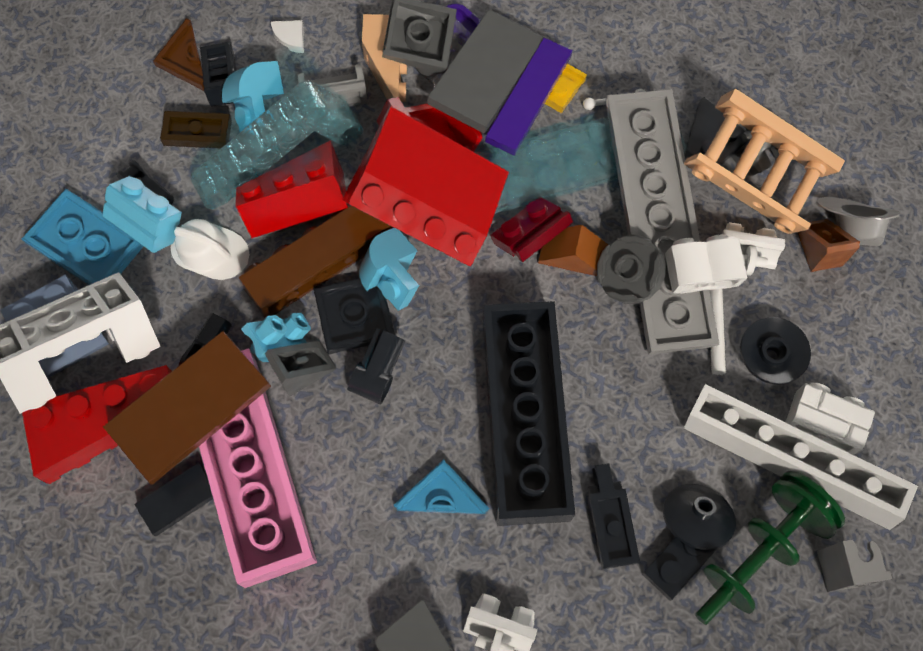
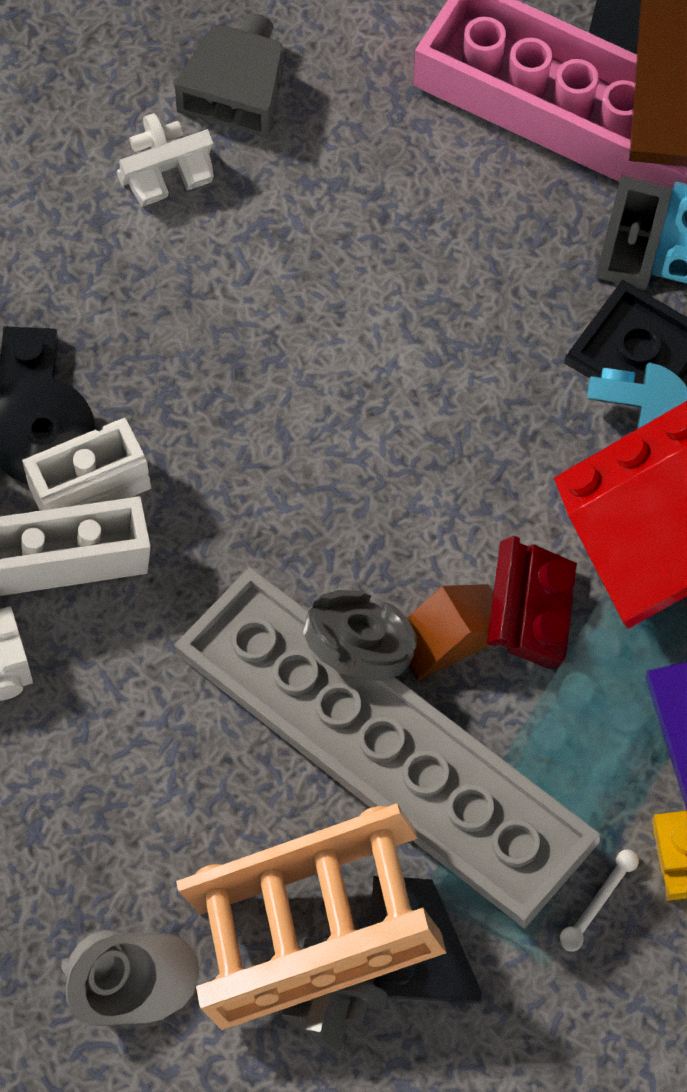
camera: 140 degrees right, 5 degrees down
(373, 375) = (545, 292): black piece -> none
(442, 492) = (348, 246): dark azure tile -> none
(527, 414) = (335, 376): black brick -> none
(611, 520) = (139, 354): black hinge -> none
(699, 462) = (89, 469): none -> white brick
(705, 264) = (270, 701): white brick -> none
(718, 352) = (199, 686): white bar -> none
(757, 249) = (261, 801): white hips -> none
(786, 340) = (90, 671): black dish -> none
(827, 245) = (138, 897): dark orange slope -> none

